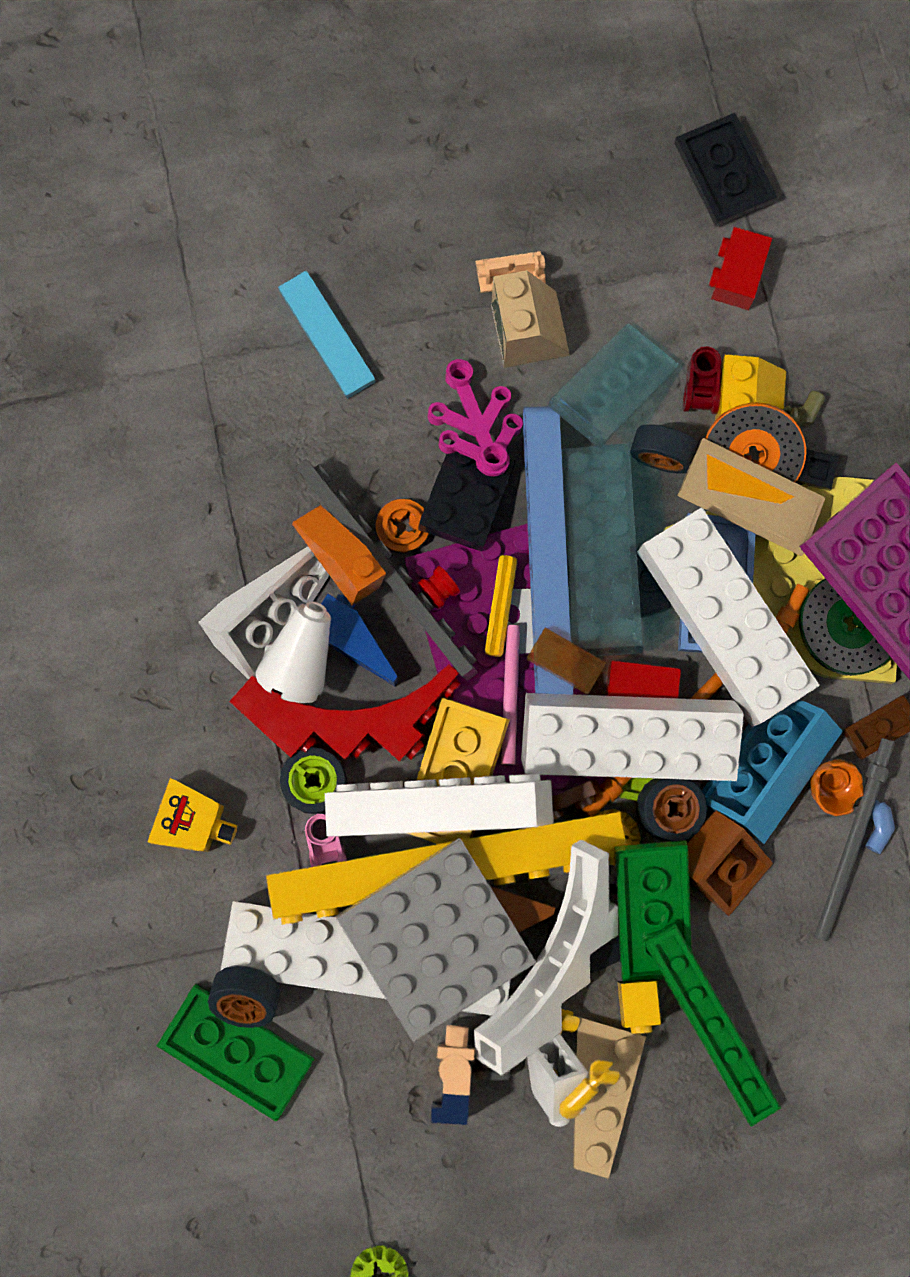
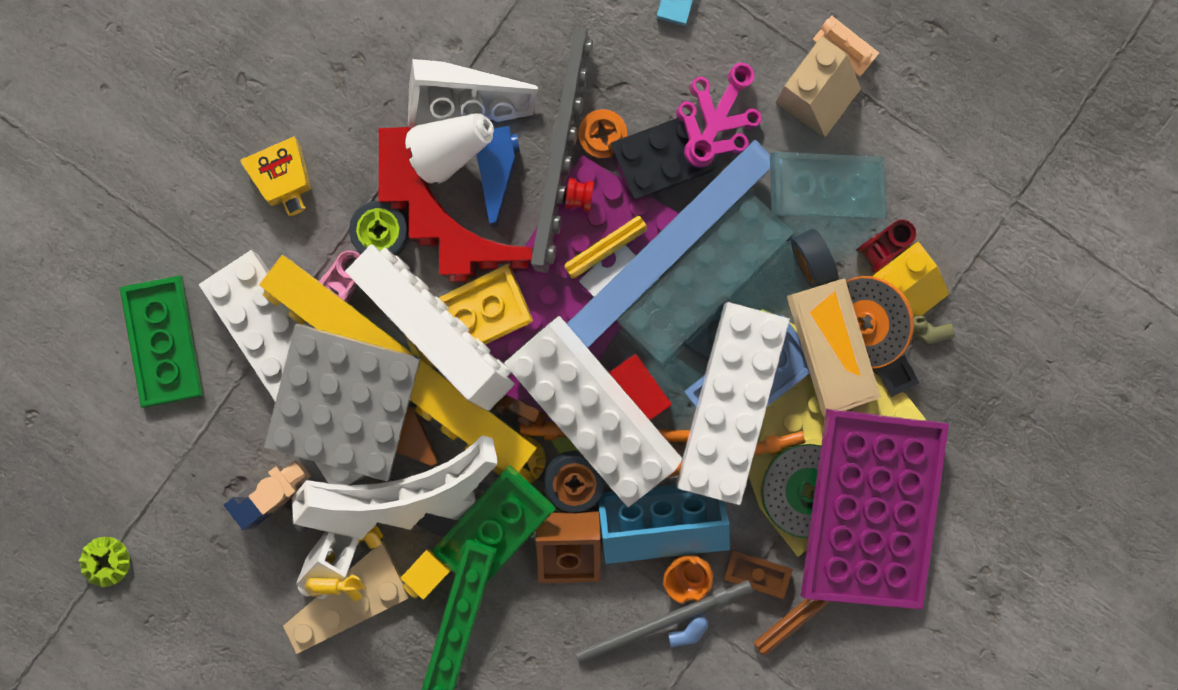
camera: 45 degrees right, 5 degrees up
(244, 996) = (197, 313): black wheel -> none
(340, 554) = (542, 109): orange slope -> none
(511, 693) = (553, 306): bright pink bar -> none
(566, 661) = (604, 322): clear orange tile -> none
(725, 169) = (1055, 125): black plate -> none
(740, 269) = (992, 198): red brick -> none

